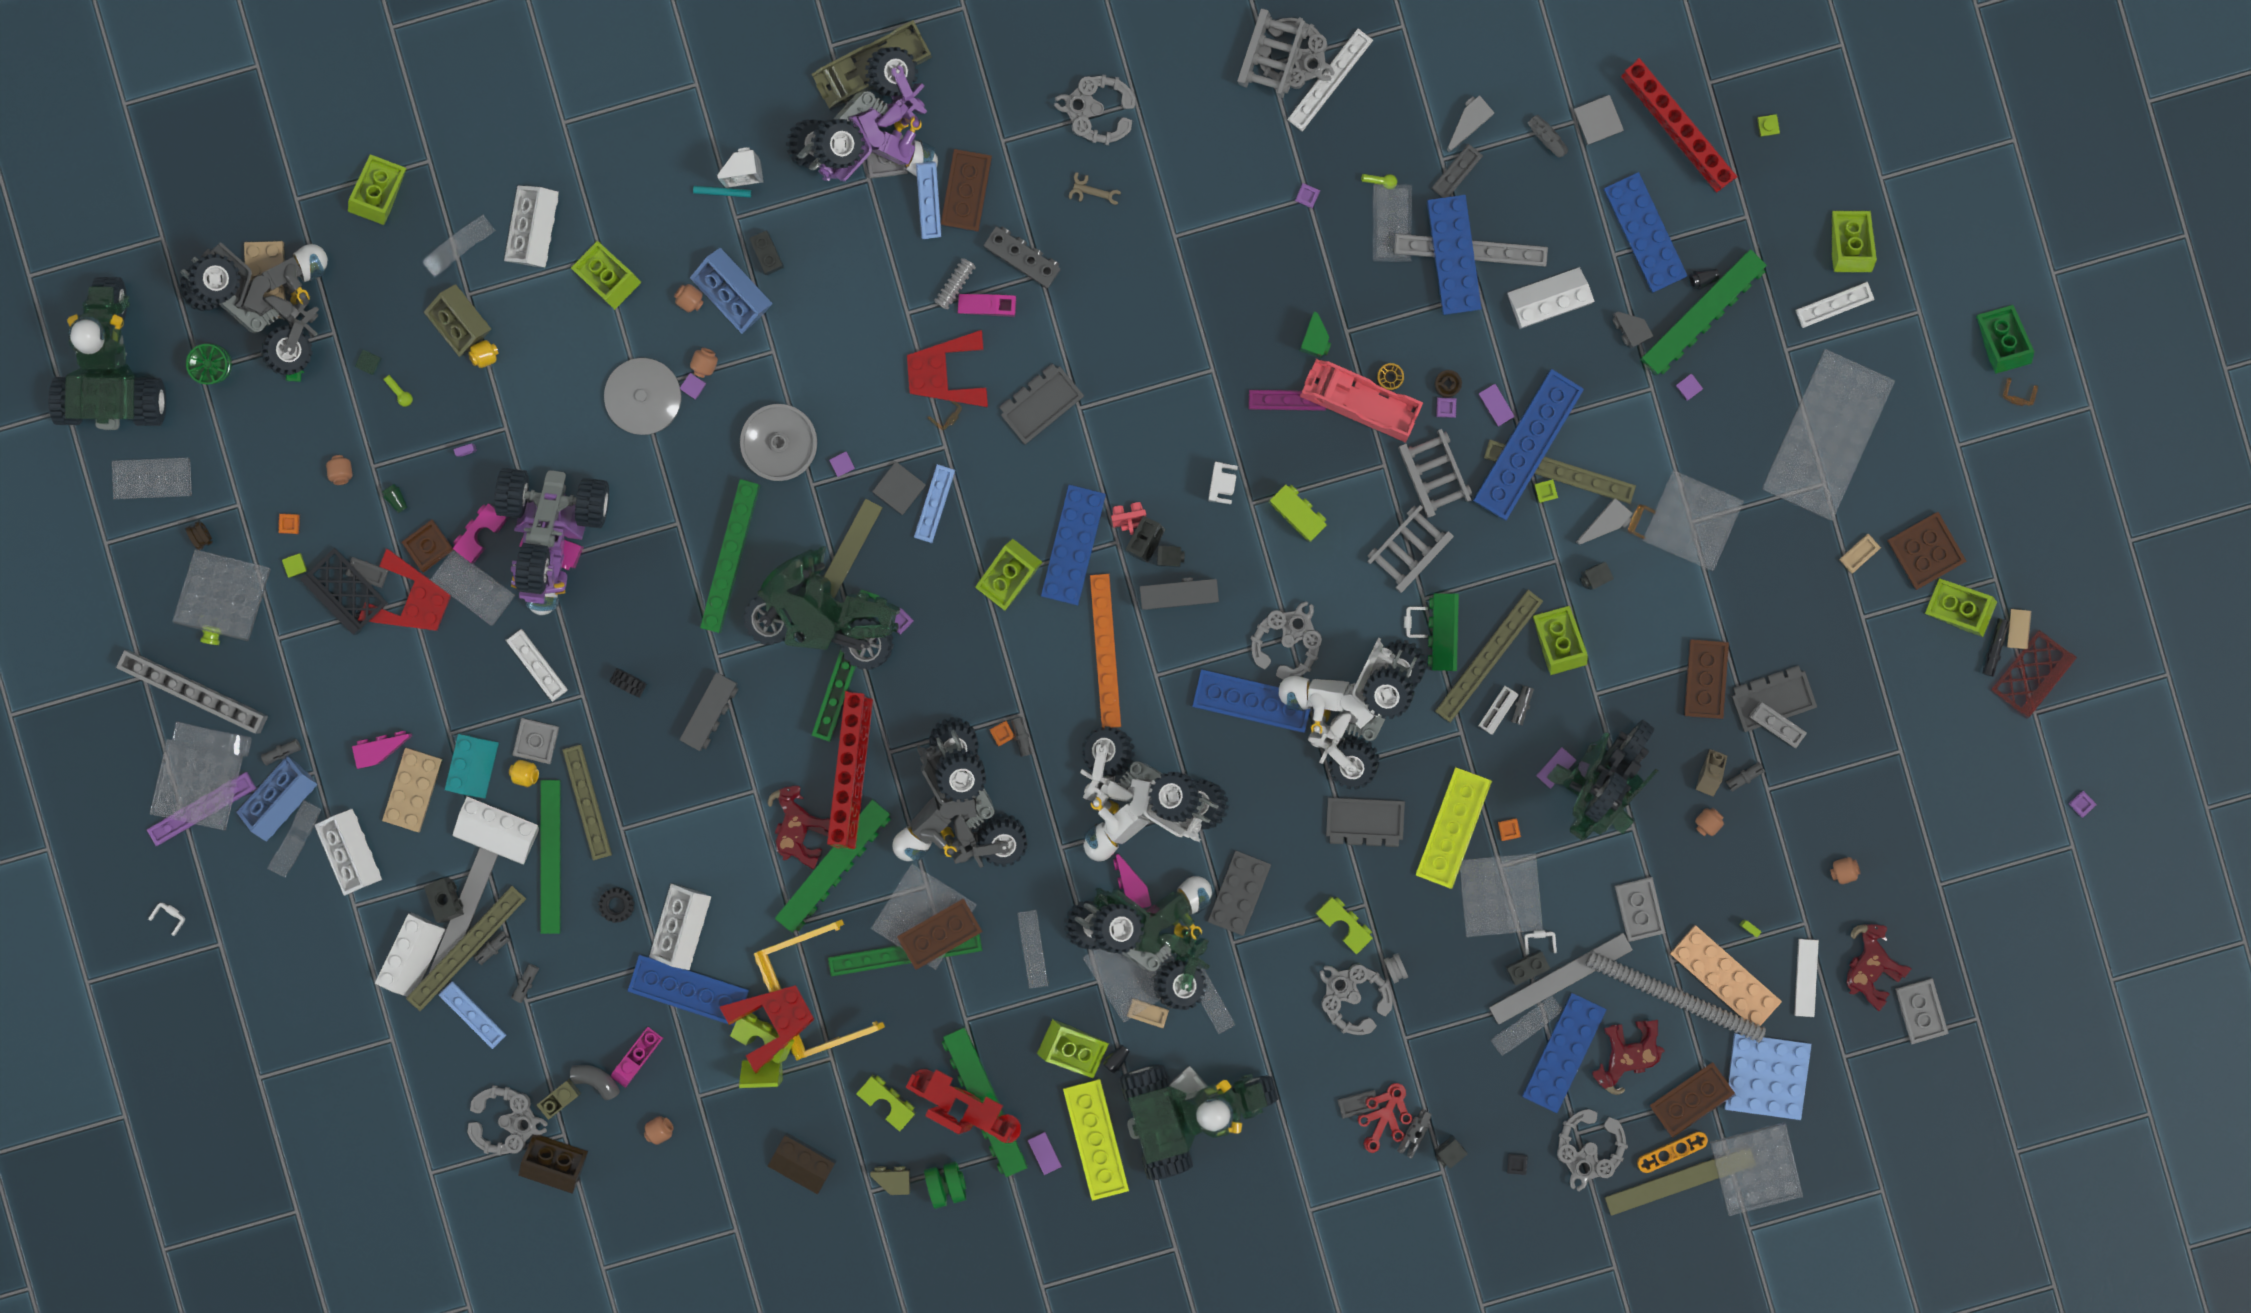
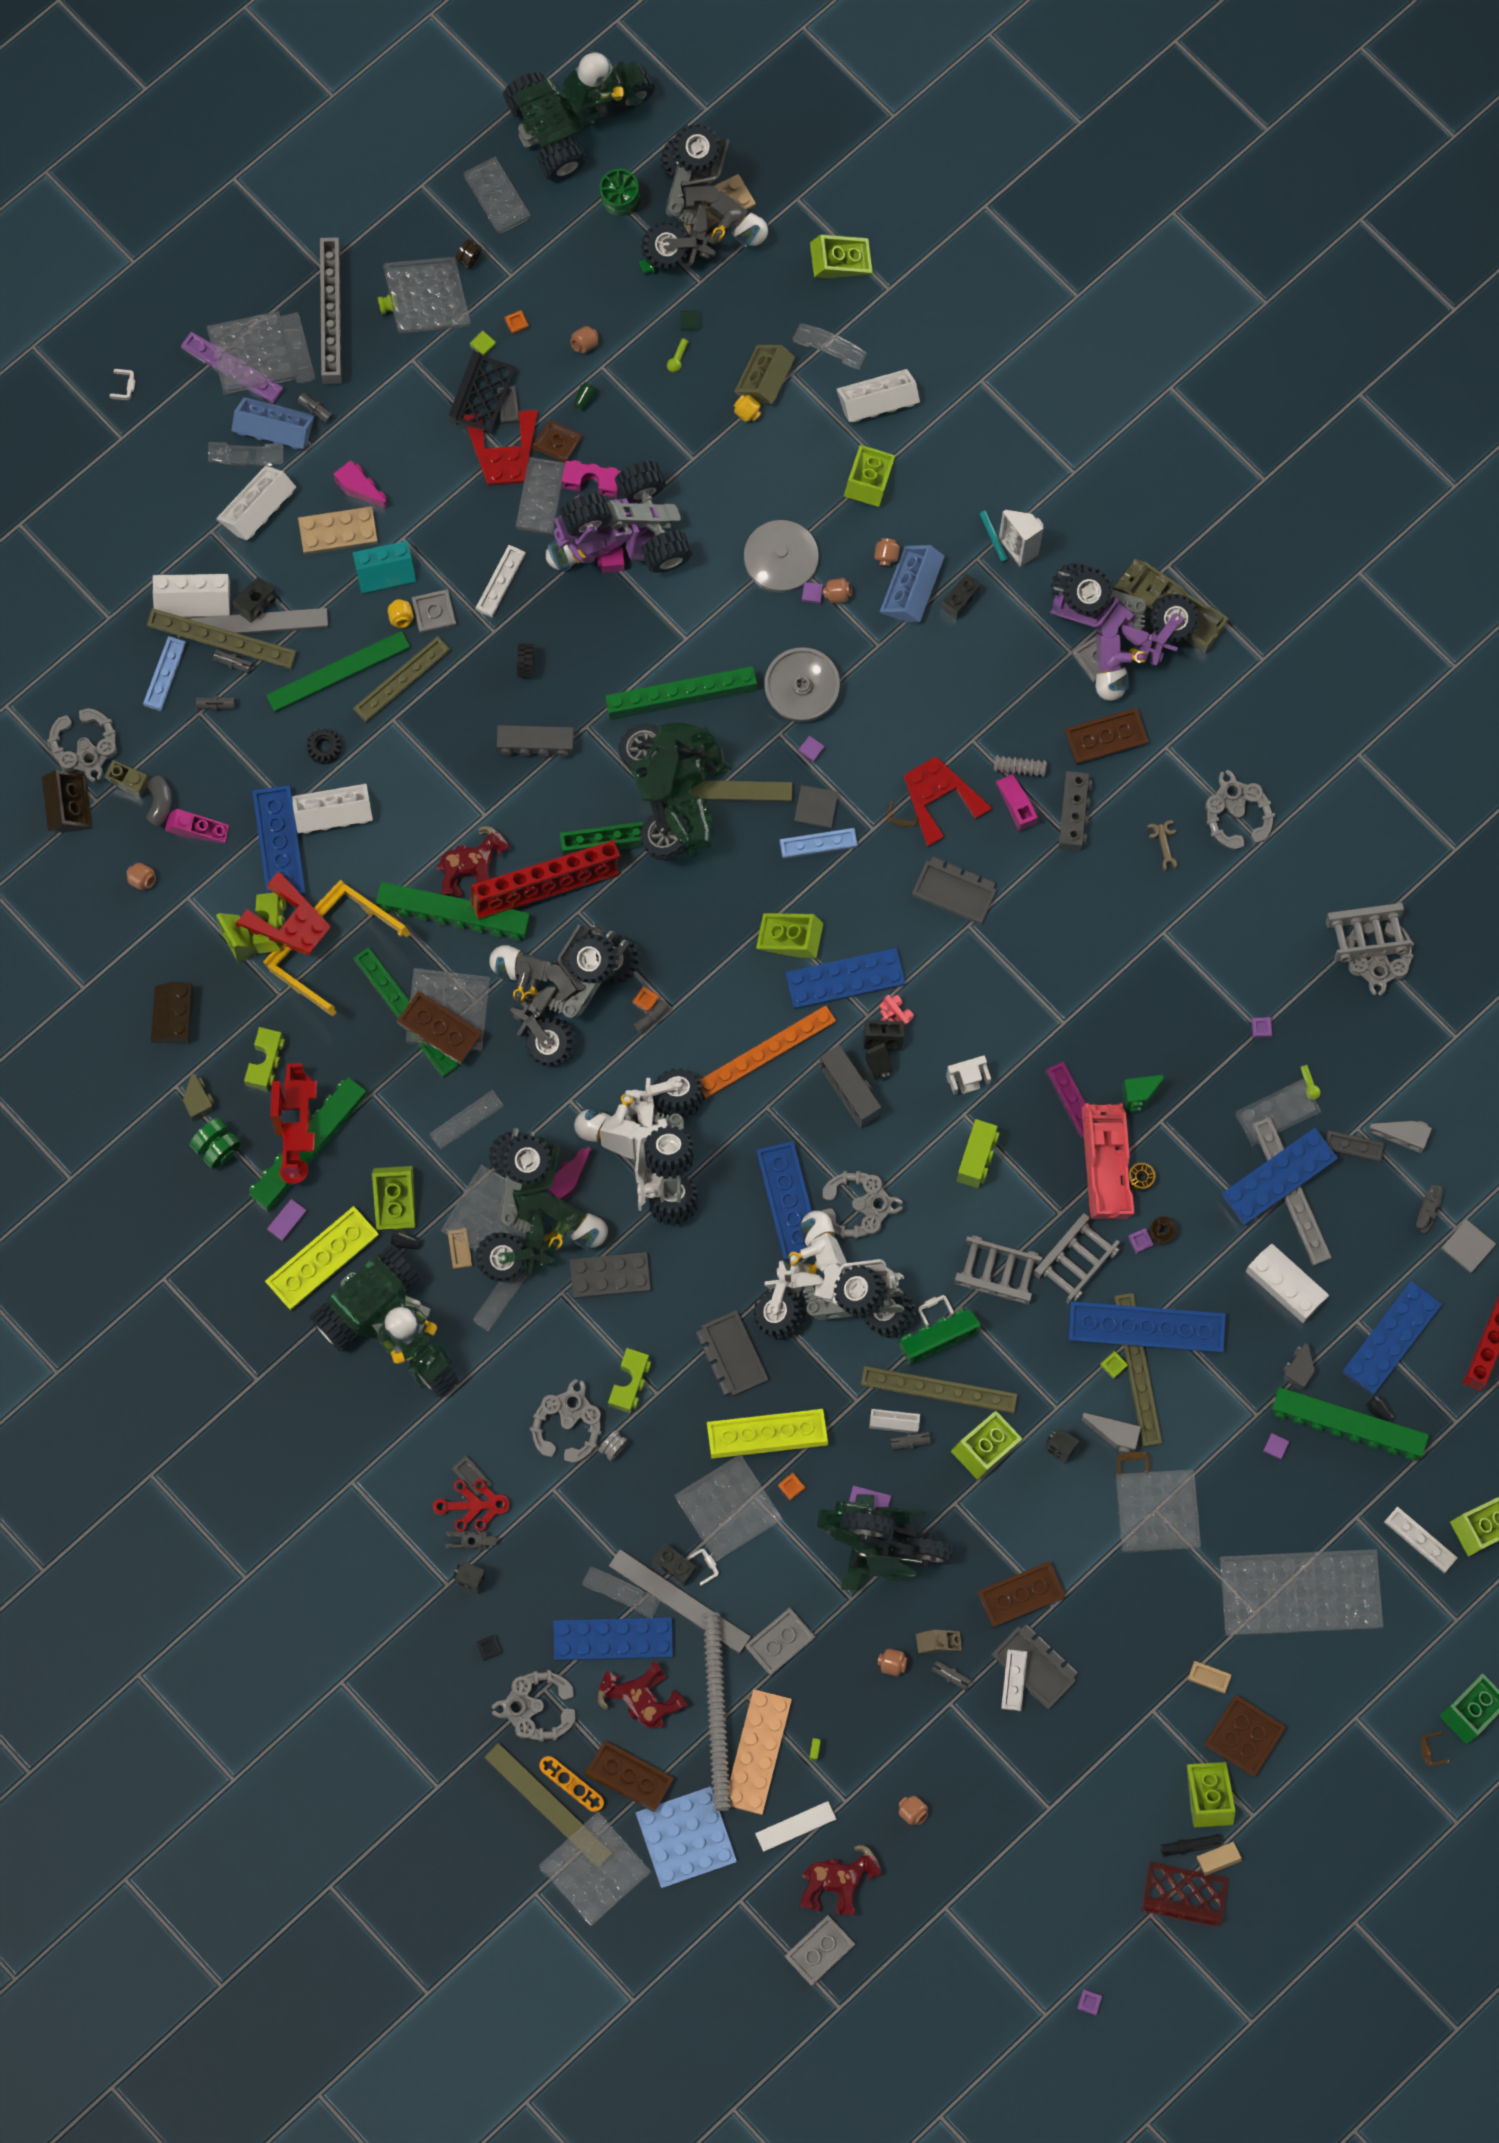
camera: 55 degrees right, 15 degrees down
(465, 450) = (655, 432): medium lavender tile -> none
(495, 830) = (338, 613): white slope -> none
(903, 620) = (700, 865): medium lavender tile -> none
(928, 200) = (1080, 706): light blue tile -> none
(1323, 89) = (1362, 995): white tile -> none
(1496, 405) = (1167, 1283): medium lavender tile -> none

